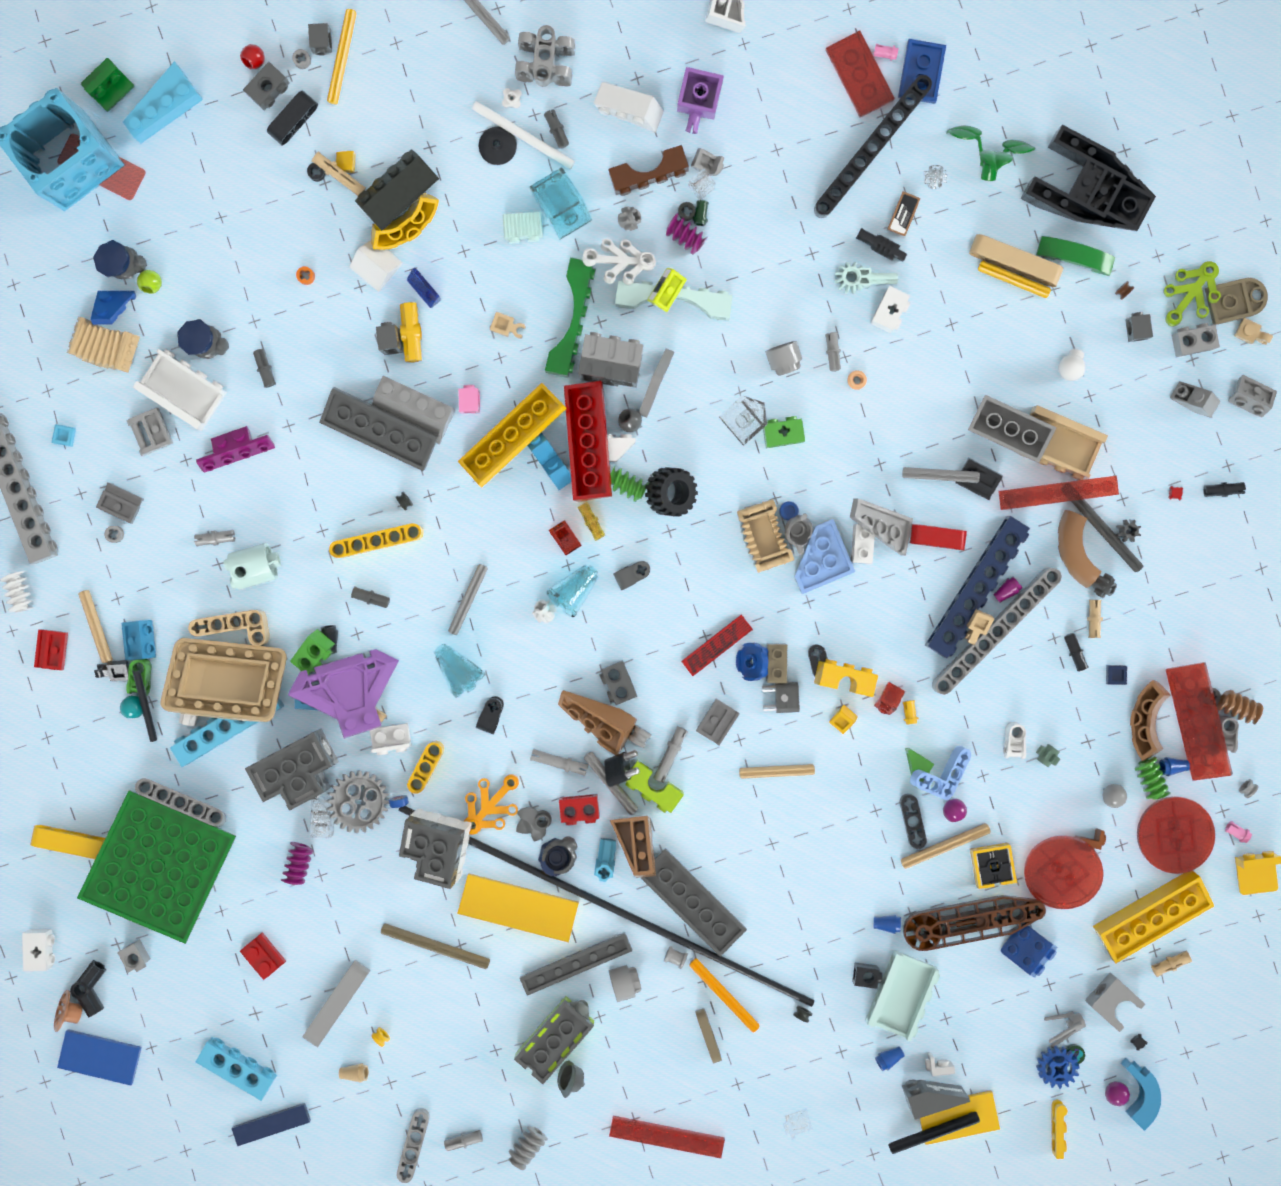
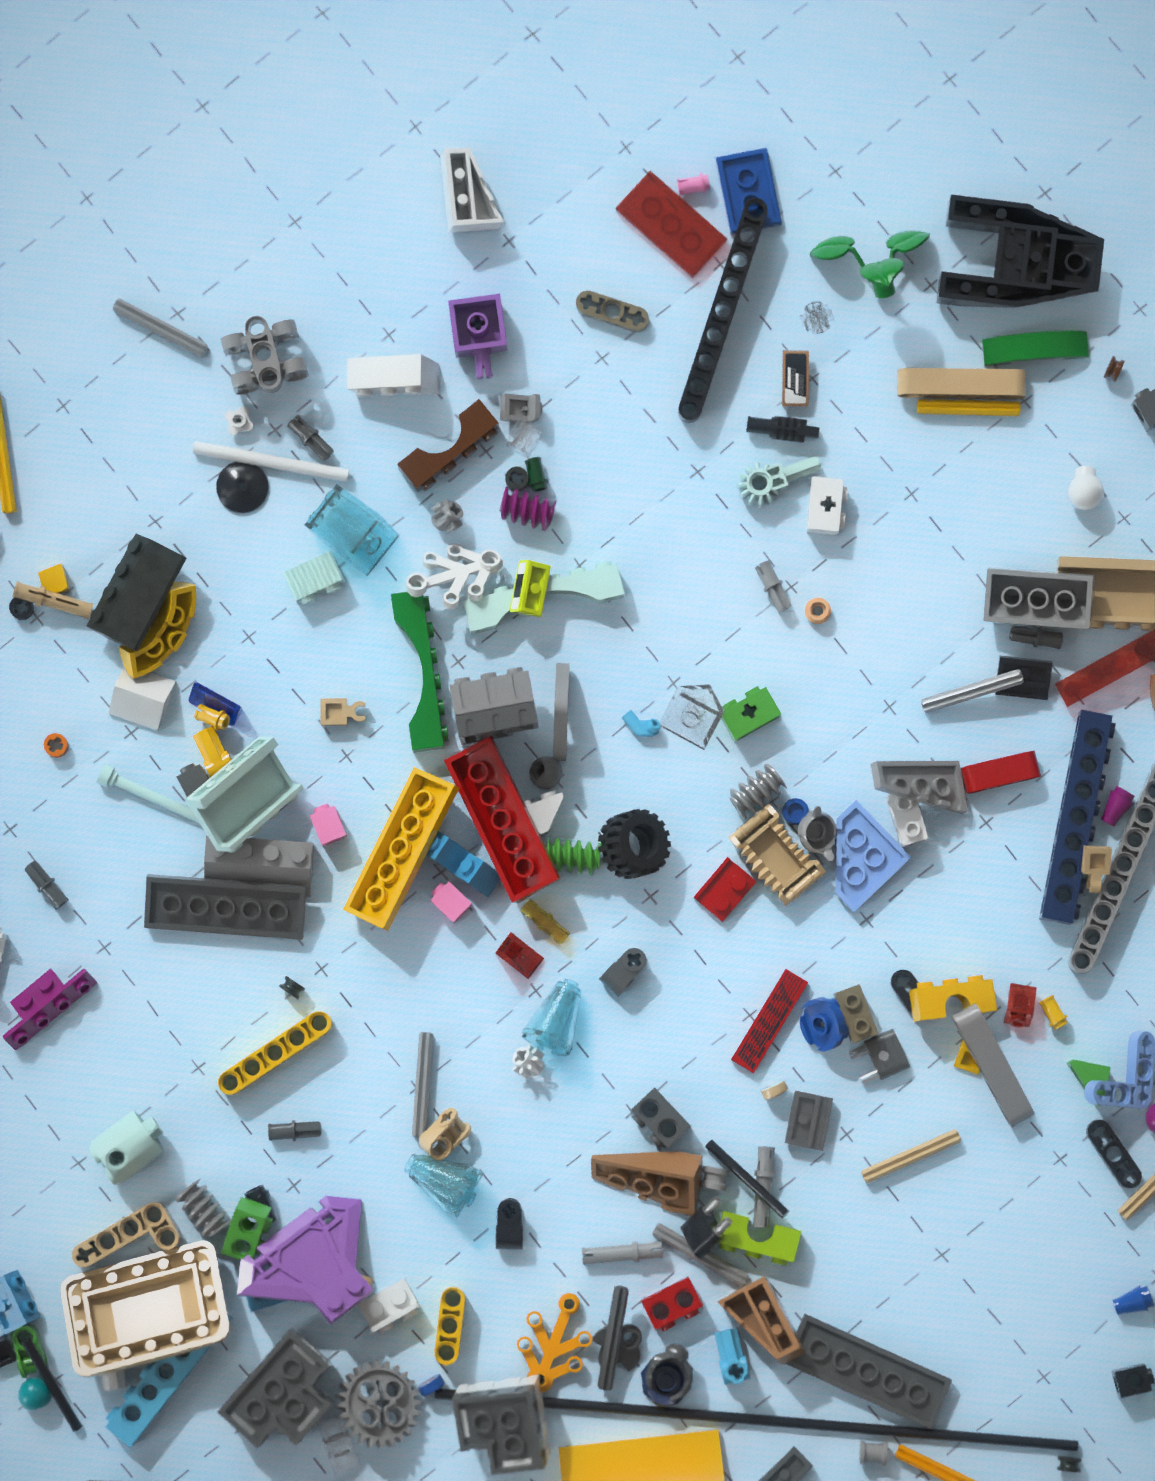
camera: 15 degrees left, 5 degrees down
(214, 538) = (61, 1130): light grey pin -> none
(289, 627) = (202, 1209): none -> light grey piece
(332, 310) = (110, 777): none -> light aqua piece
(417, 357) = (243, 795): none -> light aqua panel
(421, 299) = (217, 719): none -> yellow pin
(470, 639) = (445, 1133): none -> tan piece
(531, 817) = (613, 1337): none -> dark grey axle
(532, 483) = (450, 901): none -> bright pink brick
(661, 745) = (747, 1179): none -> black bar
(702, 693) = (774, 1090): none -> tan tile
(706, 414) = (641, 728): none -> medium azure arm
(721, 545) = (724, 889): none -> red plate
(768, 486) = (756, 790): none -> light grey piece
(784, 358) = (714, 618): light grey piece -> none
(810, 123) = (633, 310): none -> dark tan beam
(856, 732) = (993, 1065): none -> light grey beam
(998, 454) = (1036, 637): none -> dark grey axle

